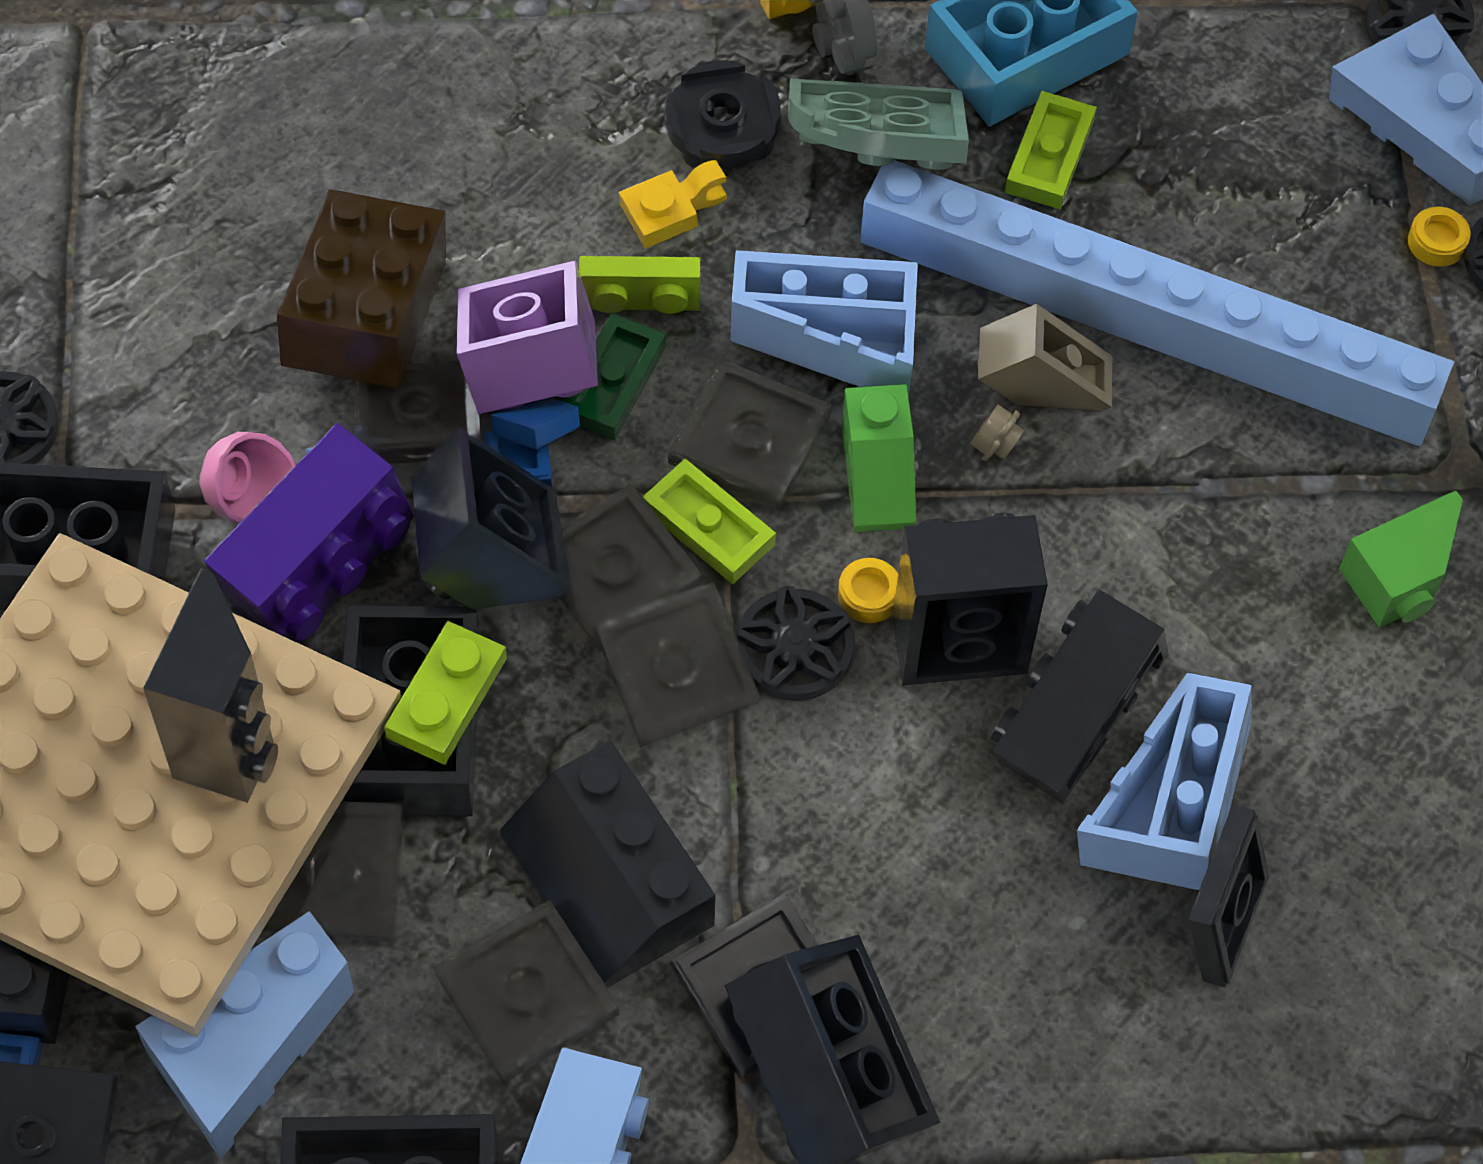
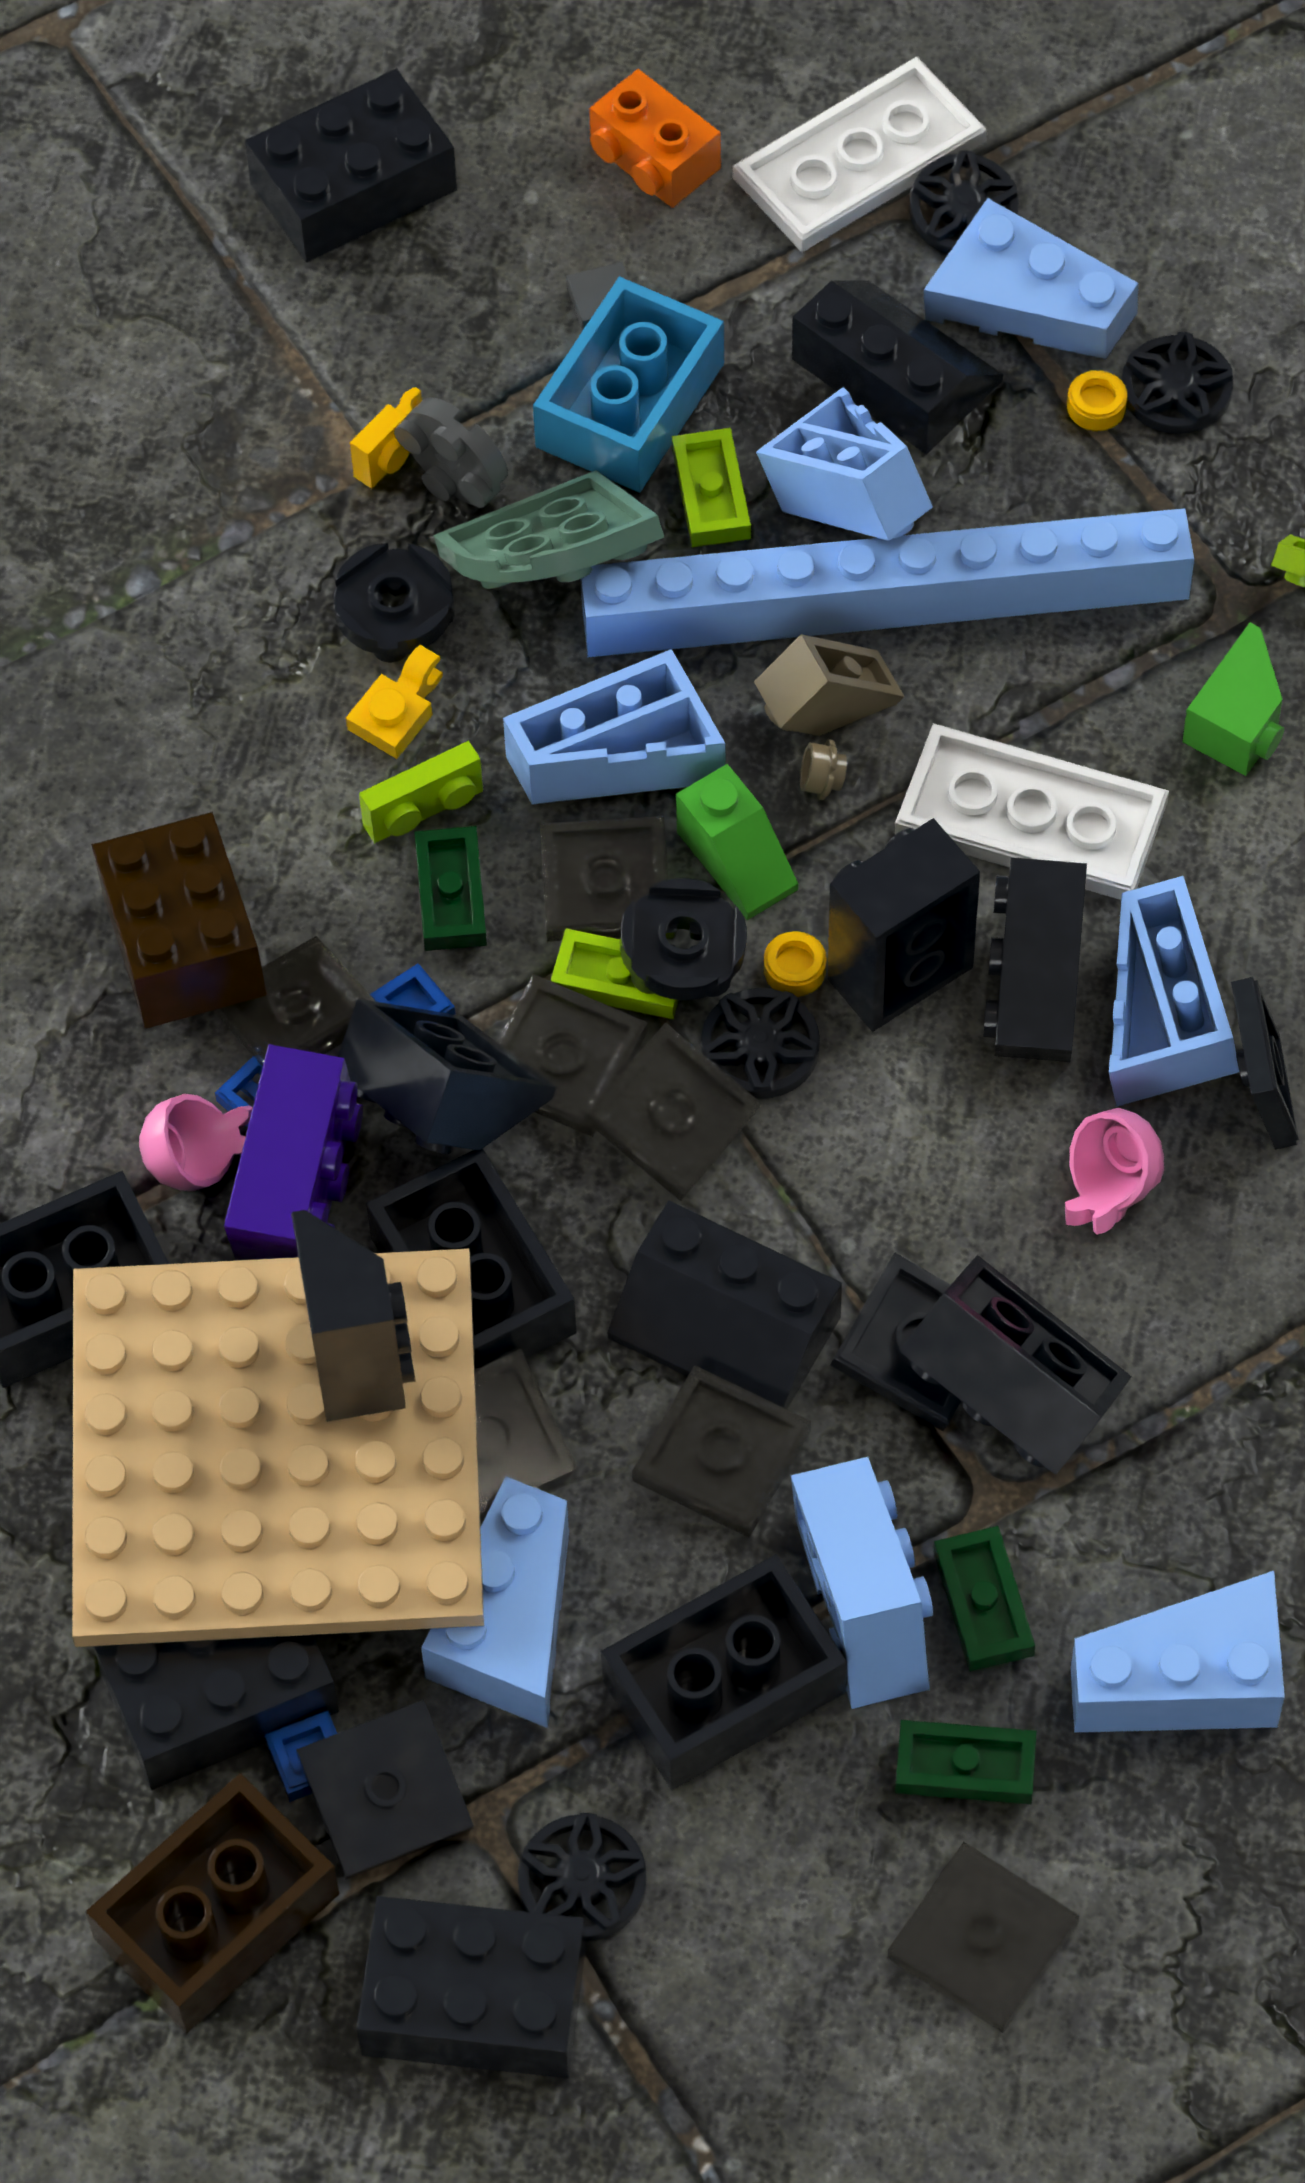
camera: 25 degrees left, 0 degrees up
(445, 692) = (507, 1231): lime plate -> none
(526, 338) = (363, 889): medium lavender brick -> none
(536, 422) = (412, 961): blue tile -> none
(765, 550) = (678, 972): none -> black plate
(1037, 919) = (1113, 1166): none -> bright pink piece
(1163, 562) = (1033, 806): none -> white tile
(1165, 186) = (845, 471): none -> light blue wedge
(1273, 117) = (890, 361): none -> black slope

